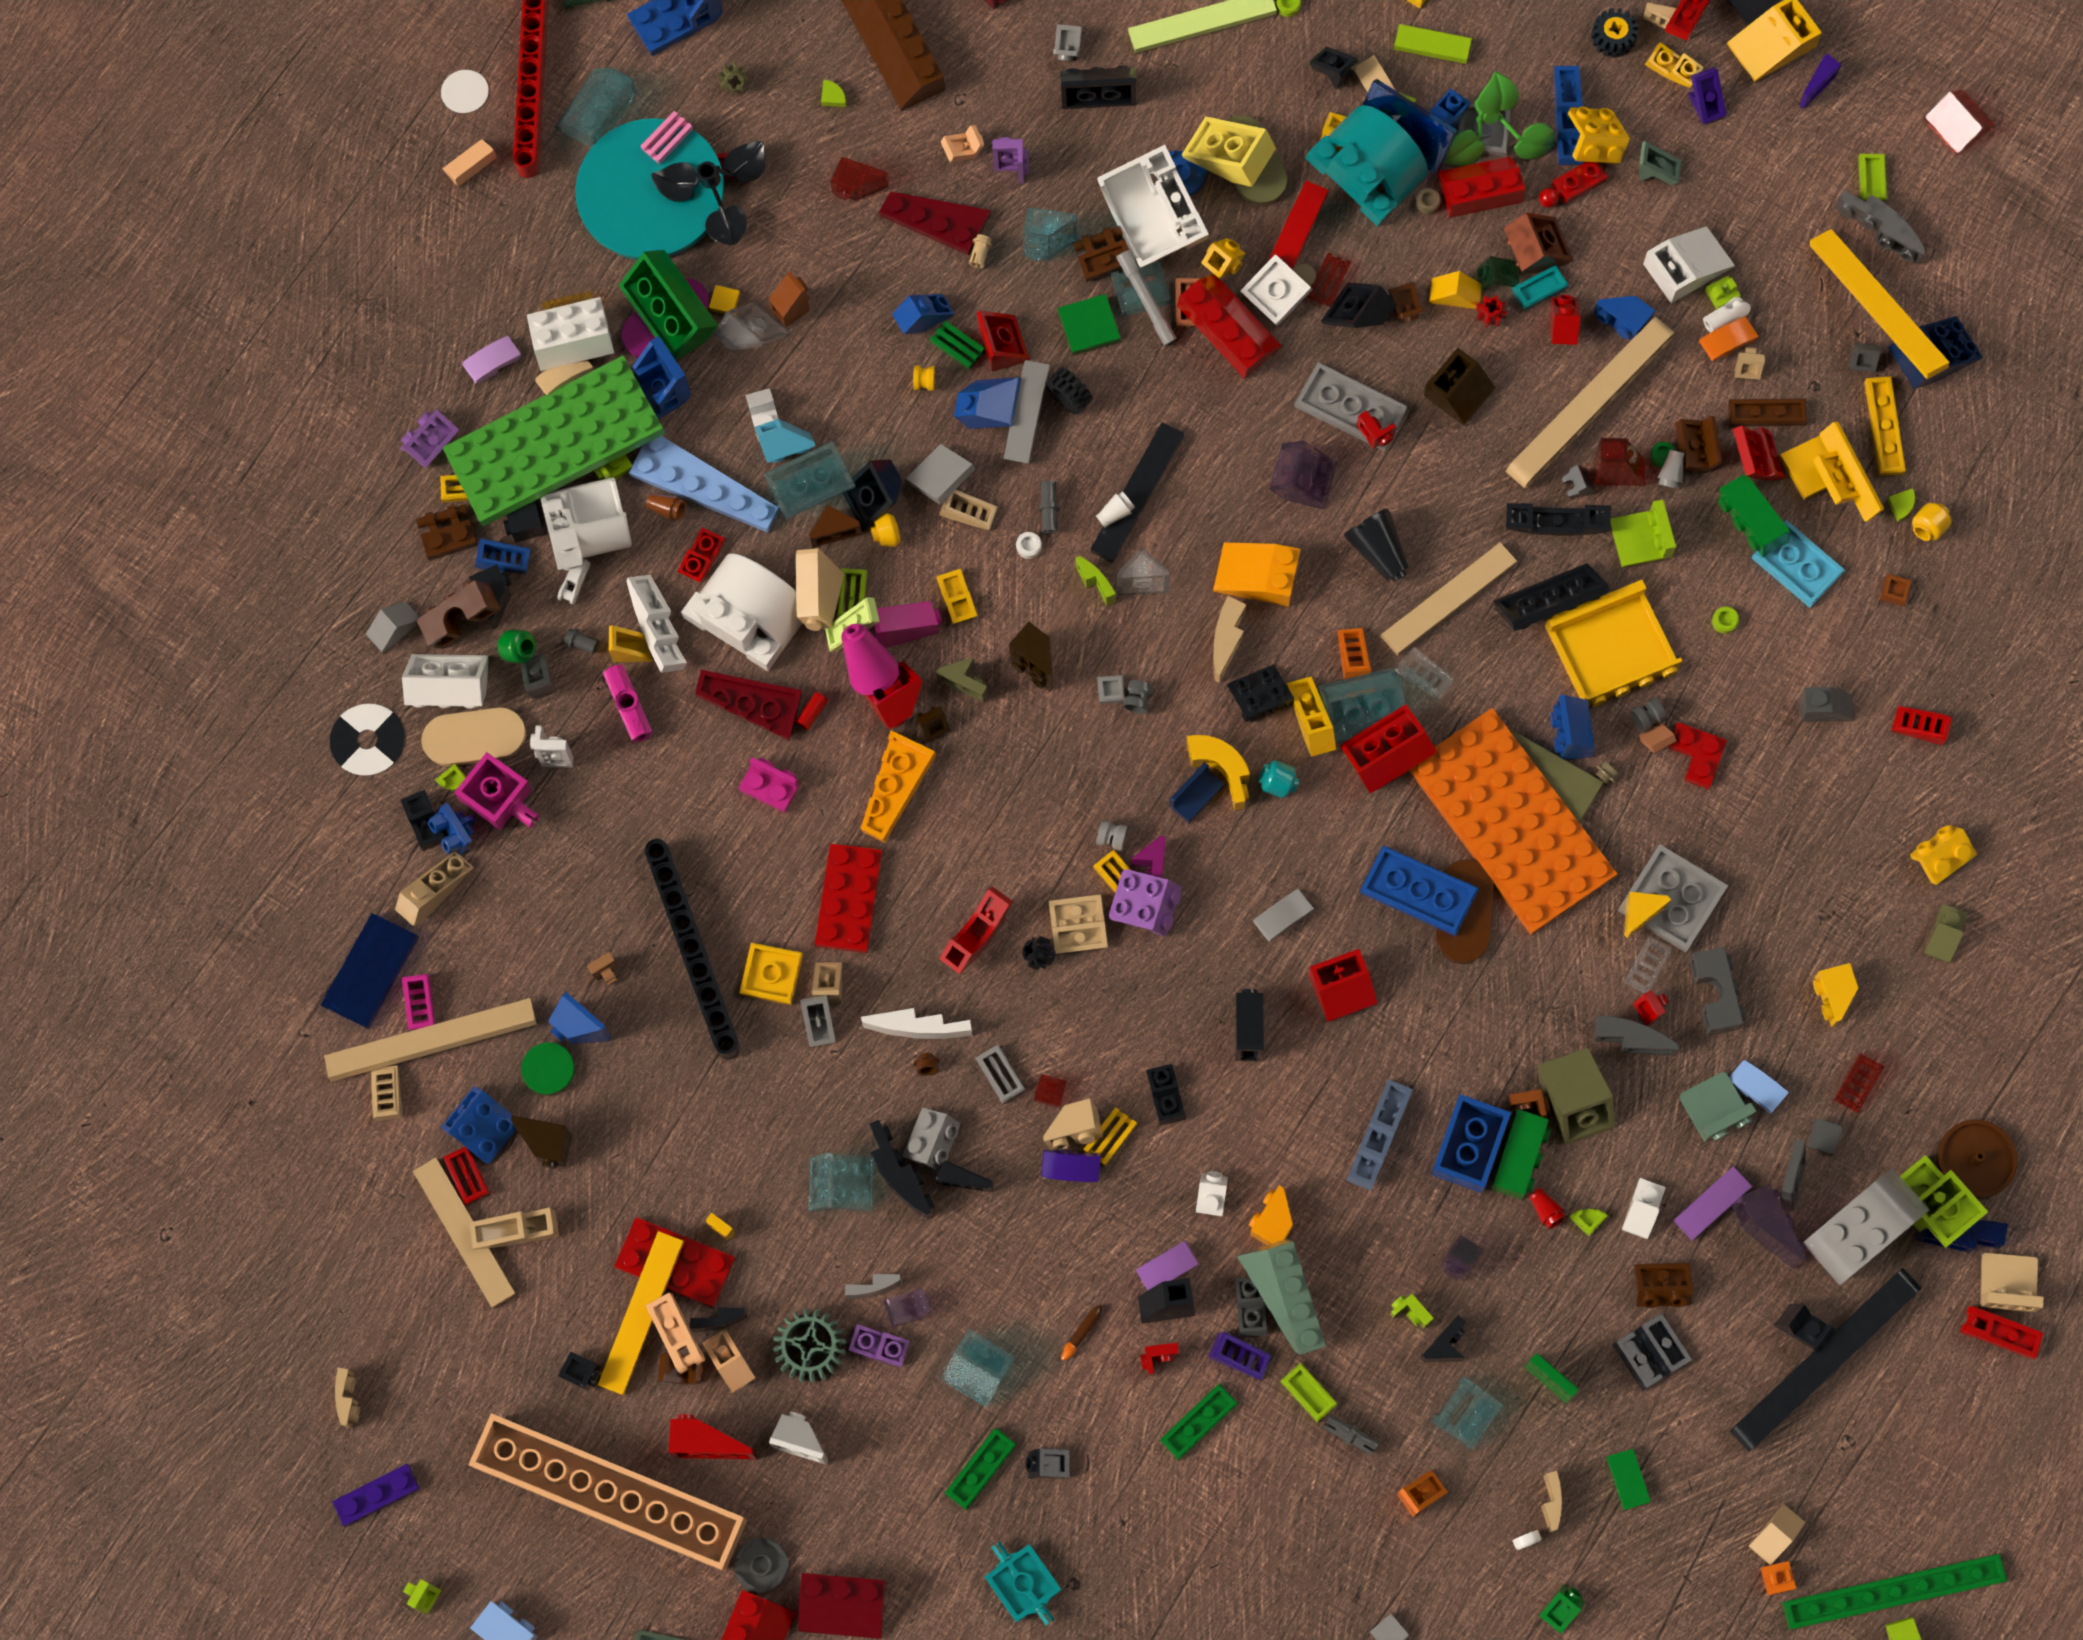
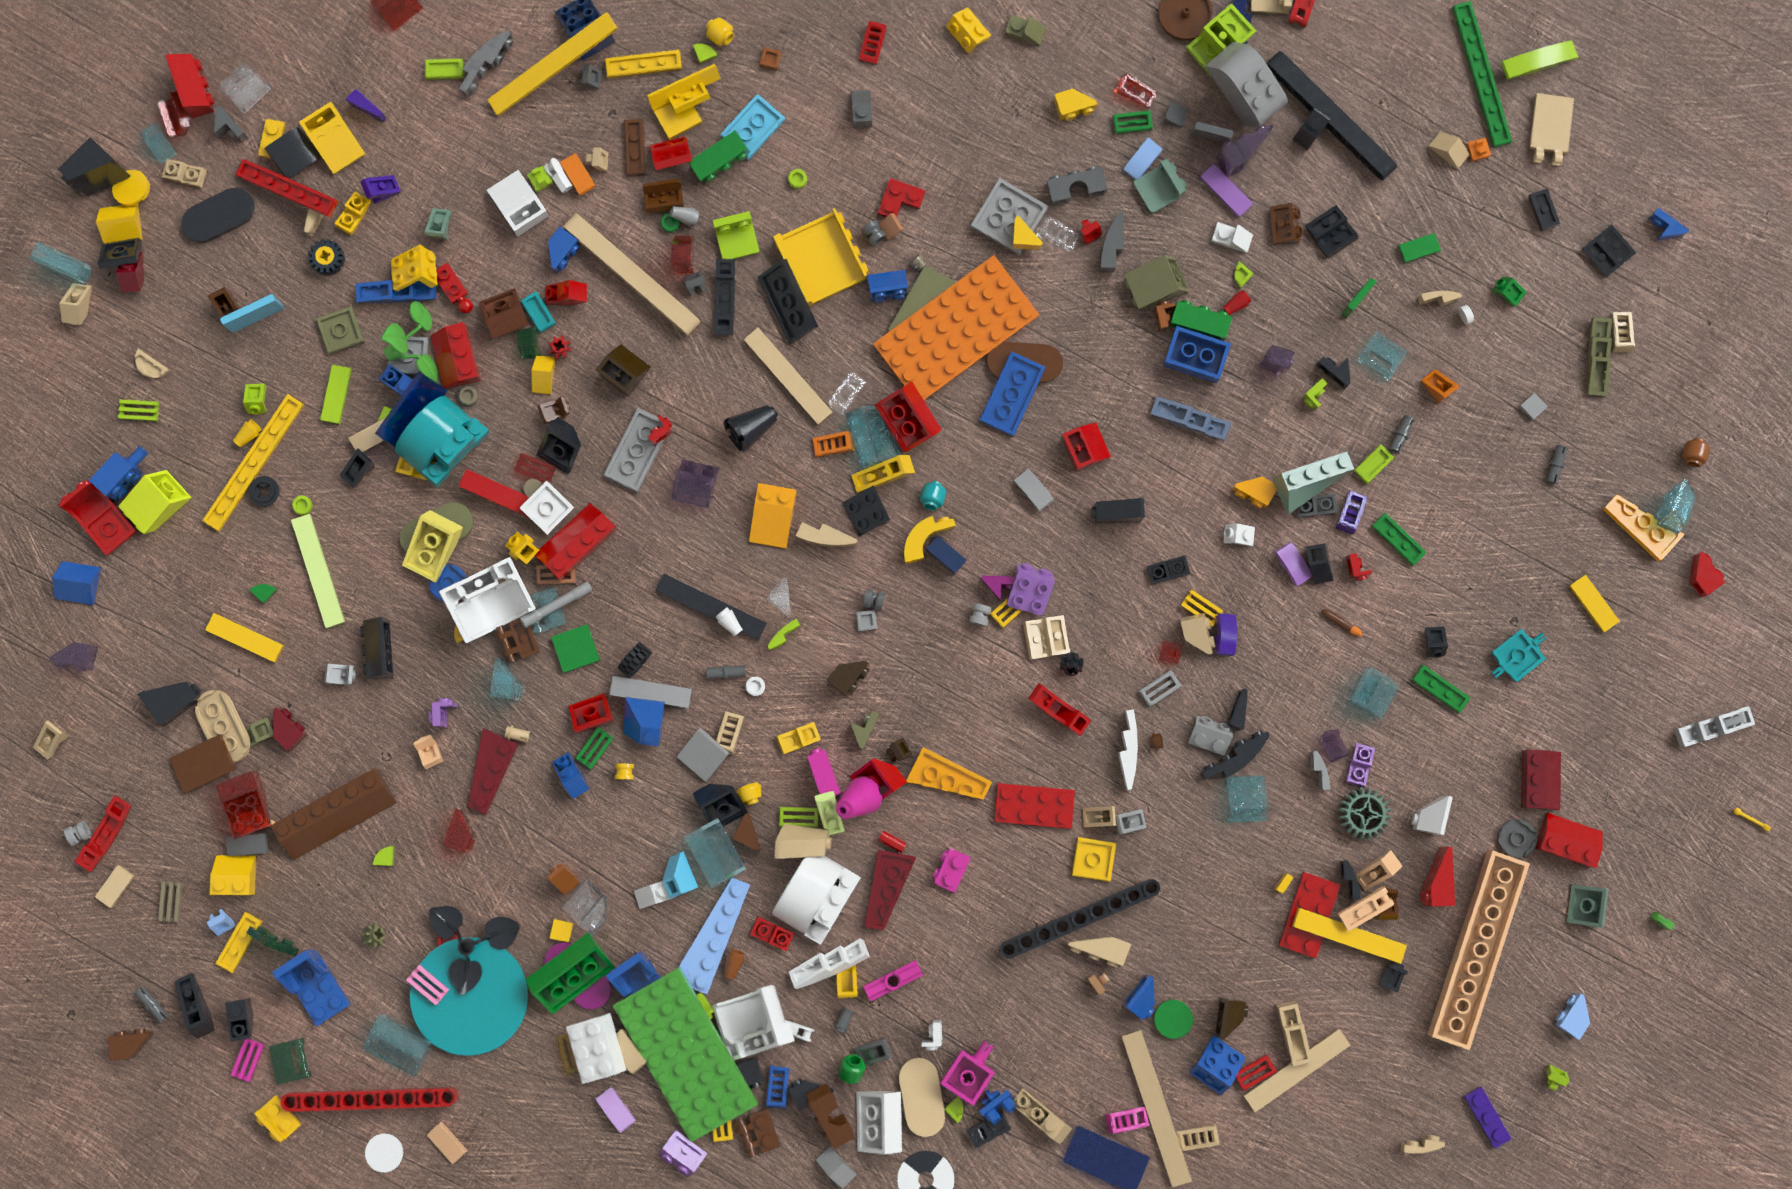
camera: 100 degrees left, 10 degrees up
(648, 983) = (1108, 948): none -> tan slope
(1517, 49) = (340, 330): none -> olive tile
(1815, 1099) = (1149, 127): none -> green tile

